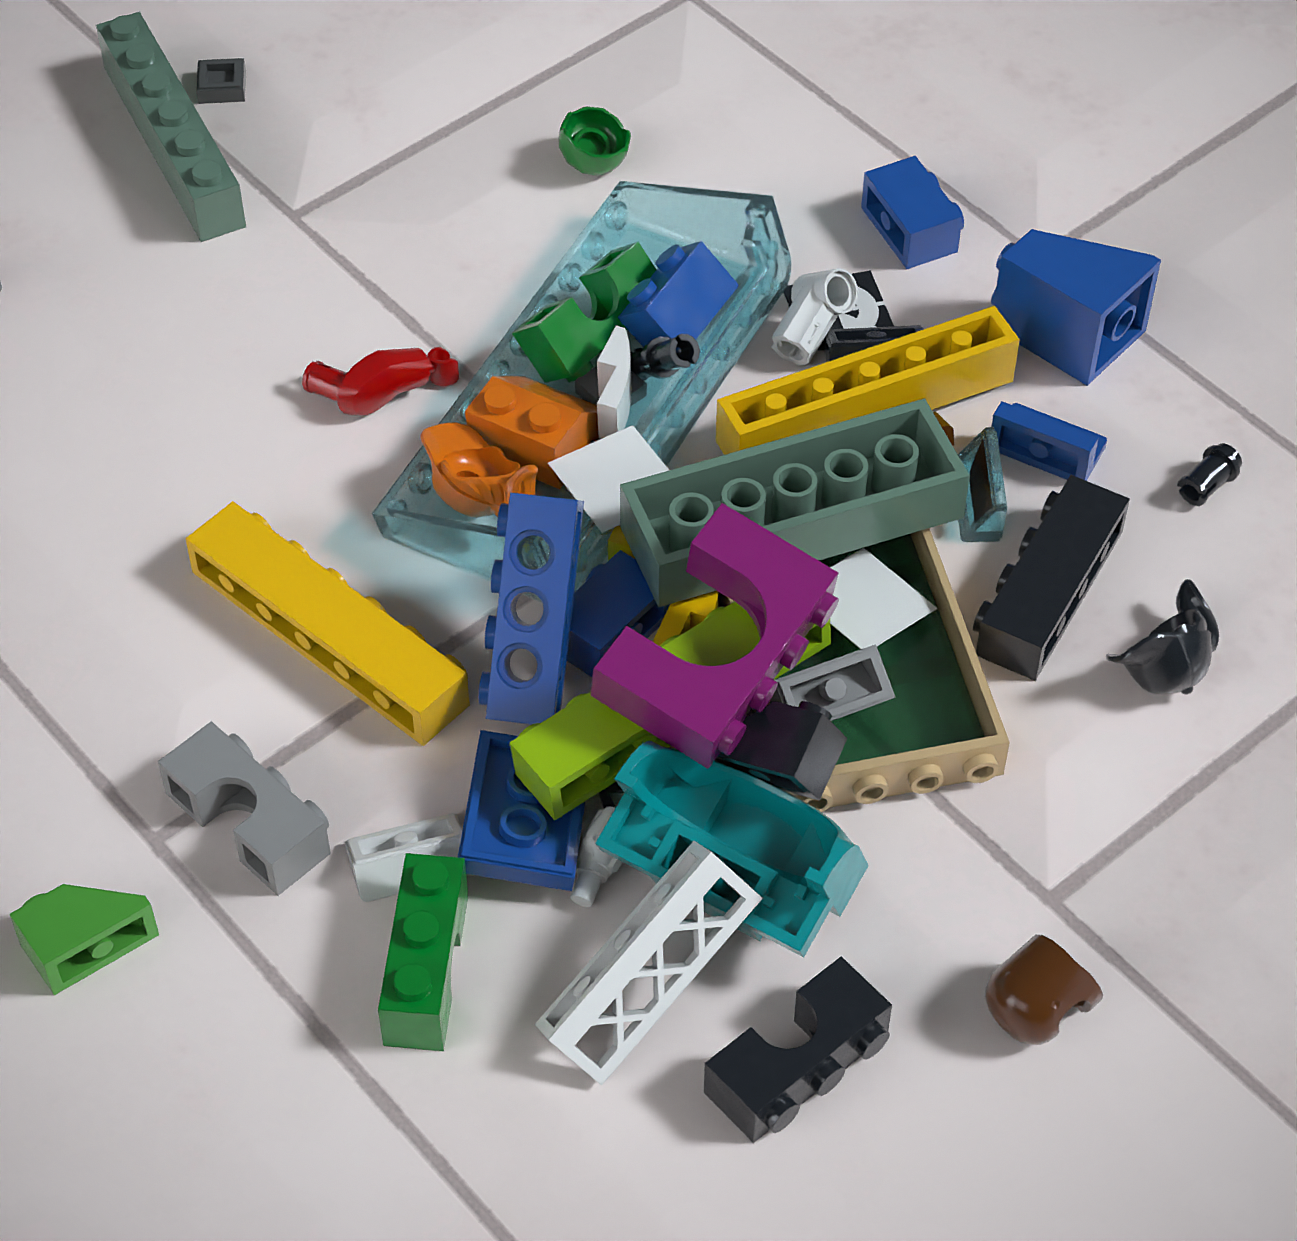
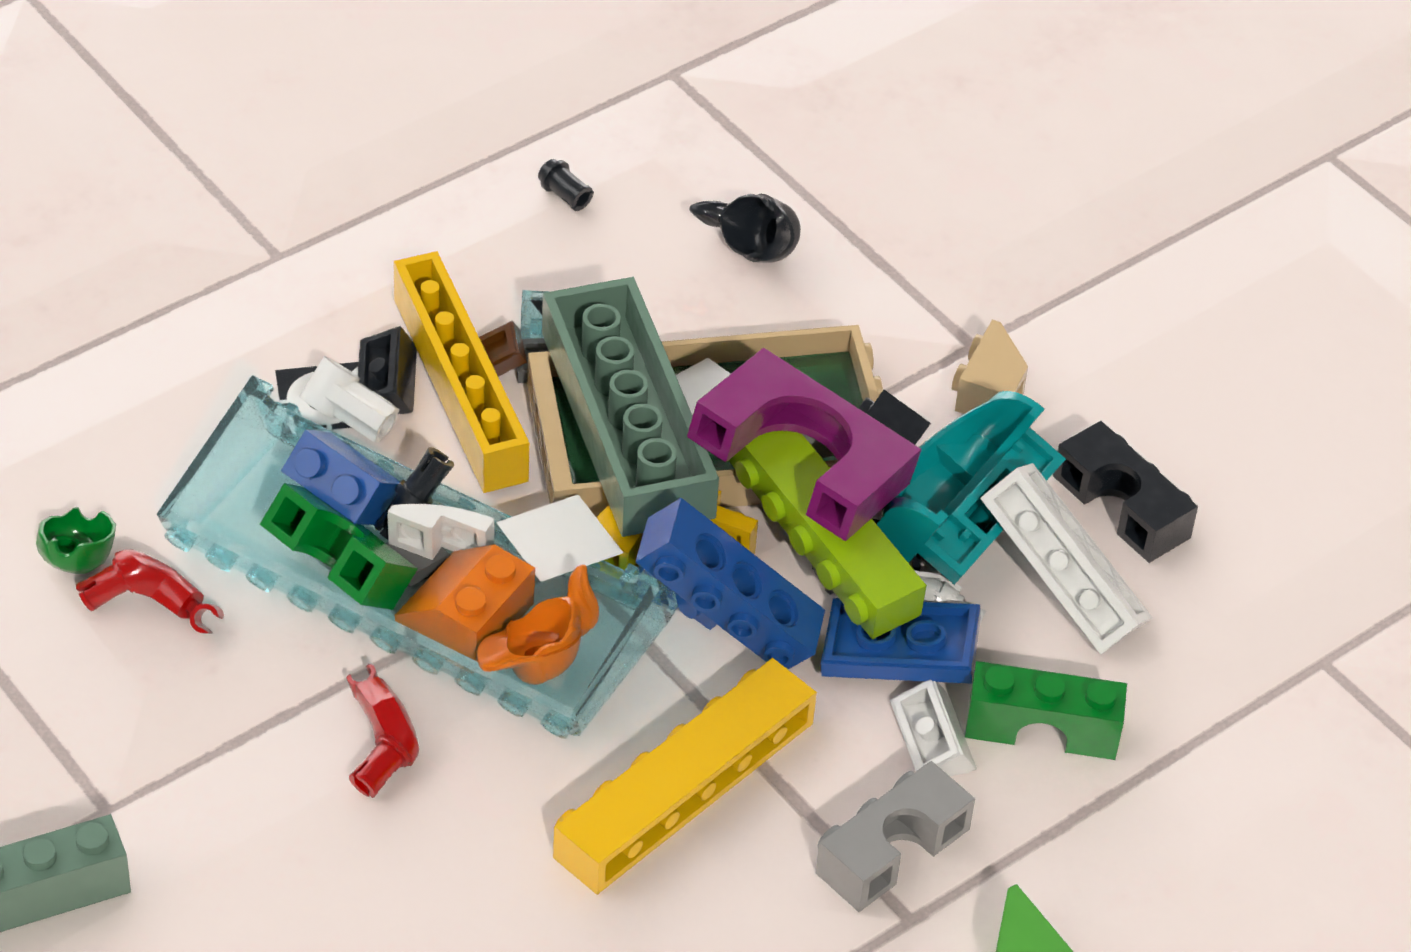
camera: 90 degrees left, 5 degrees down
(550, 206) = (150, 578): none -> red arm
(912, 212) = (222, 322): blue brick -> none
(976, 903) = (992, 368): none -> tan slope
(1037, 990) = (1077, 346): reddish brown helmet -> none
(1046, 441) = (514, 269): blue panel -> none
(1050, 577) = (674, 286): black brick -> none
(1074, 299) = (380, 217): blue slope -> none

